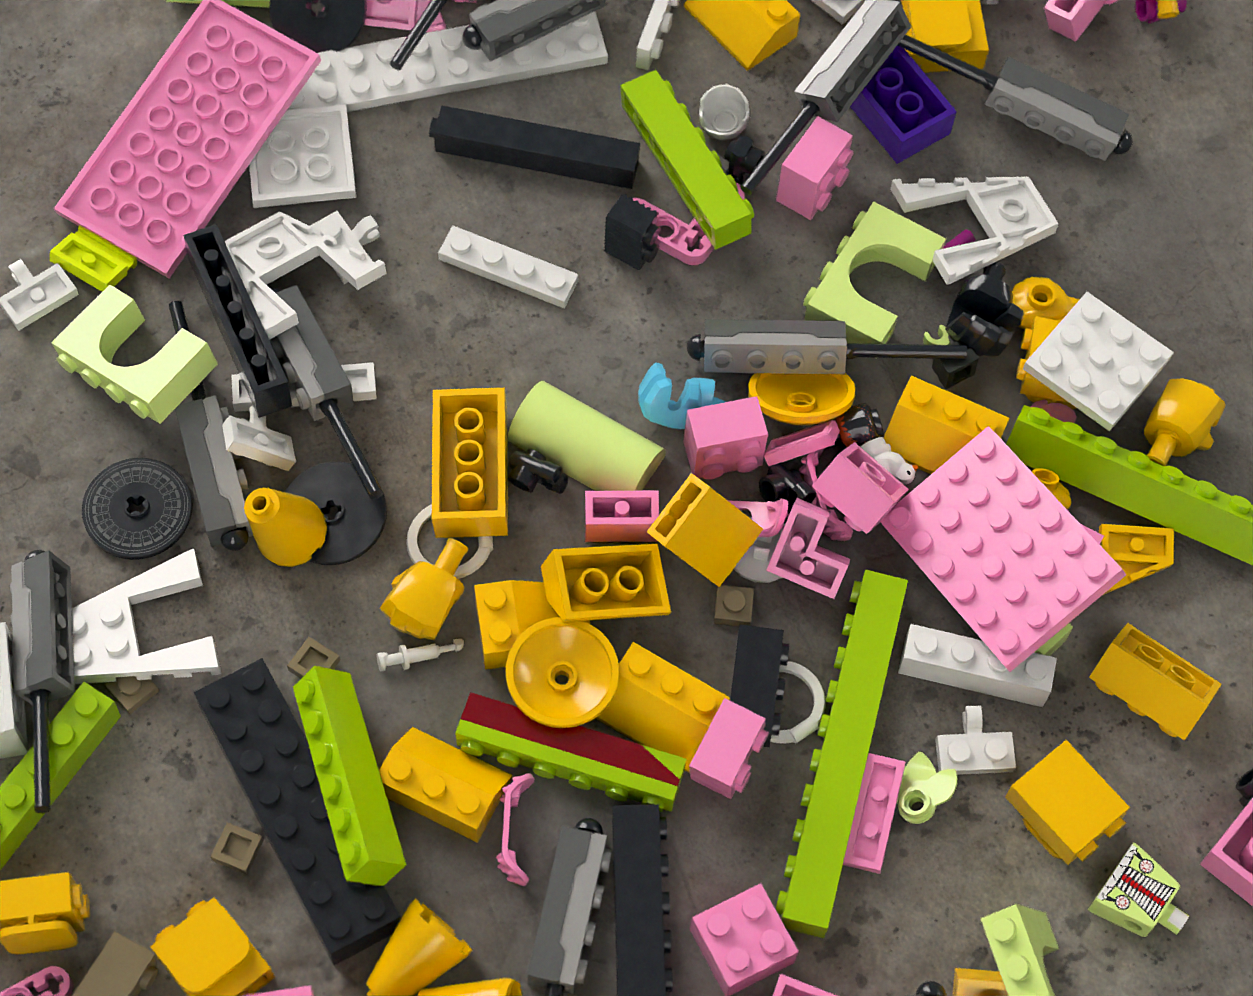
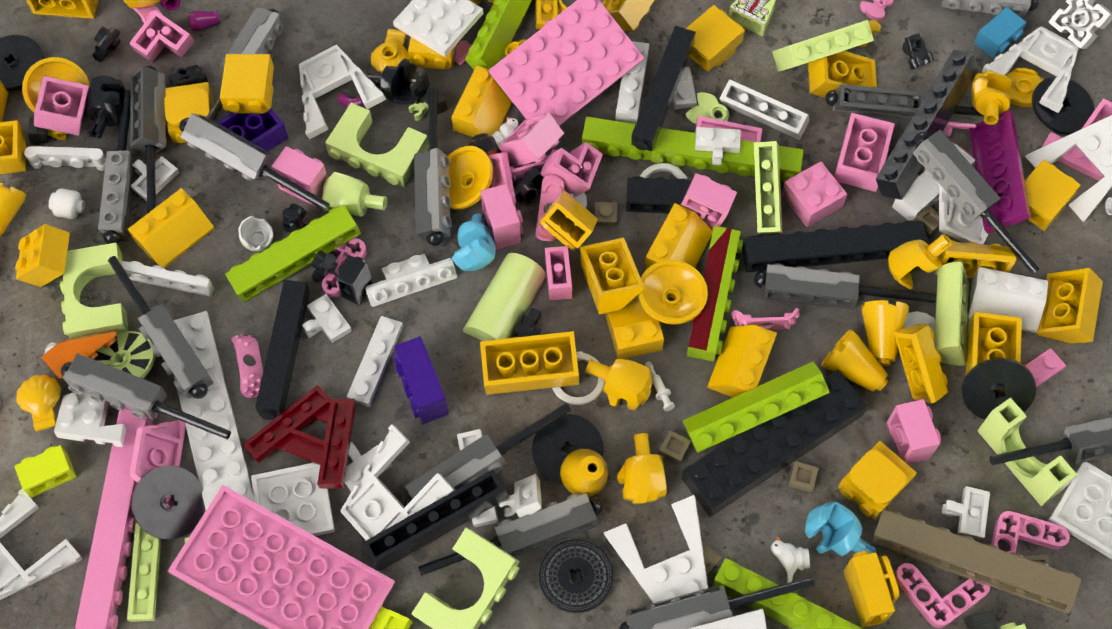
camera: 90 degrees left, 0 degrees up
(108, 810) = (791, 557): none -> white animal
(131, 888) = (839, 529): none -> medium azure piece
(271, 606) = (643, 474): none -> yellow piece
(364, 193) = (286, 435): none -> dark red plate
(457, 312) = (420, 380): none -> dark purple brick
(544, 101) = (249, 375): none -> bright pink piece
(579, 207) = (326, 319): none -> white plate
(639, 312) = (409, 277): none -> white bracket
(662, 196) = (323, 264): none -> black plate
(745, 849) = (768, 188): none -> yellowish green brick
(781, 236) = (351, 192): none -> yellowish green piece
(845, 781) = (718, 141): none -> white plate
(915, 877) = (764, 109): none -> white brick
(947, 696) = (663, 89): none -> black brick
(962, 84) = (247, 83): none -> yellow brick
(1003, 29) = (187, 76): none -> black plate
(1114, 50) = (203, 19): none -> magenta cone

